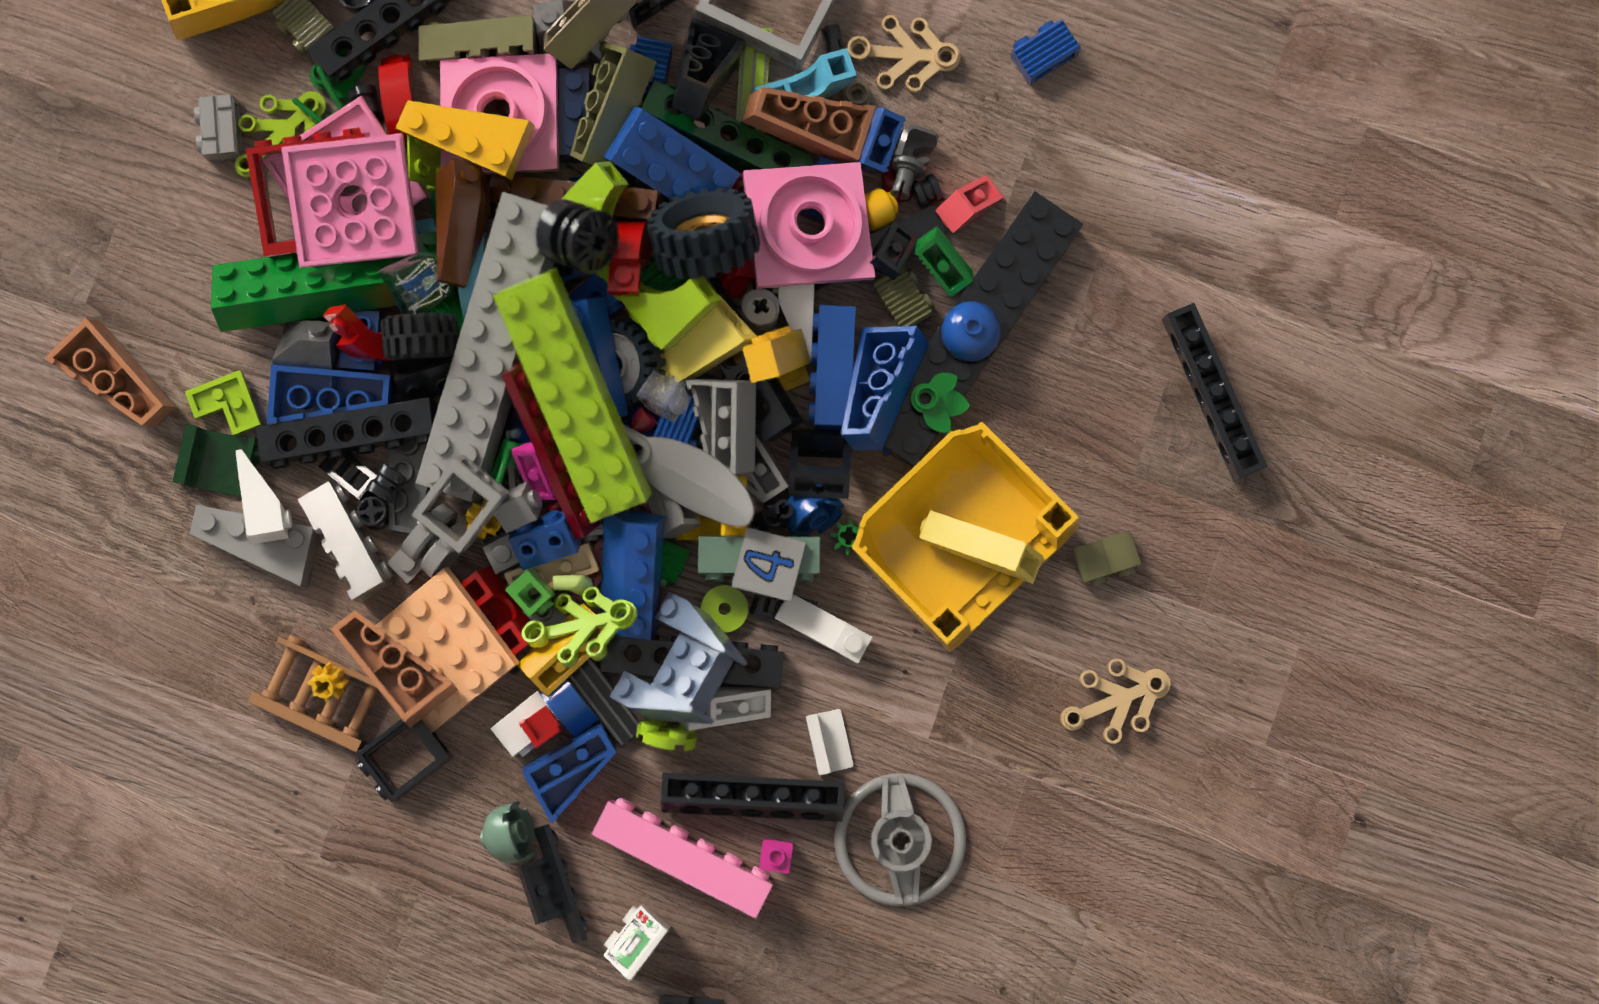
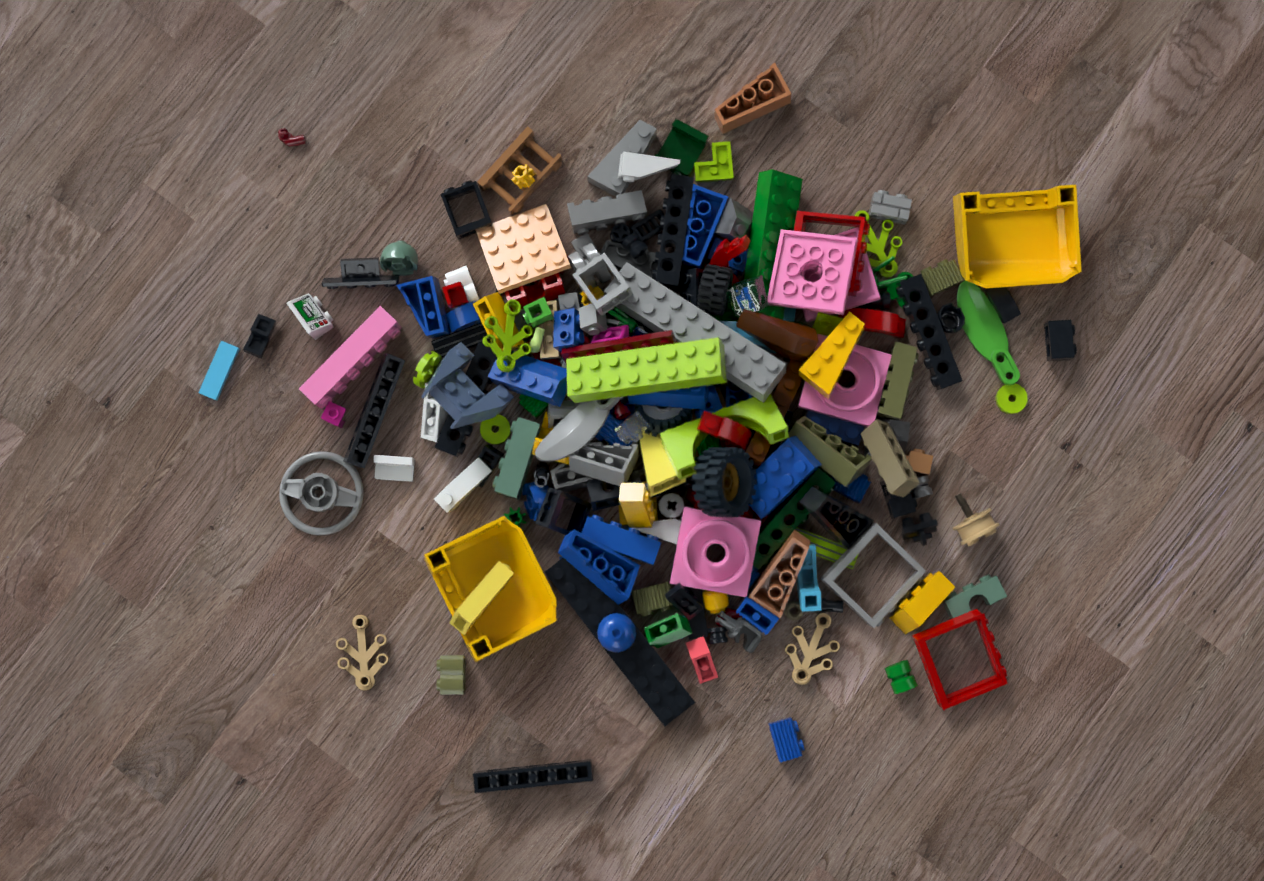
camera: 105 degrees right, 0 degrees up
(399, 675) = (514, 218): nougat wedge -> none
(577, 236) = (742, 401): black wheel -> none
(768, 564) = (508, 461): light grey tile -> none
(943, 402) = (576, 601): green plate -> none

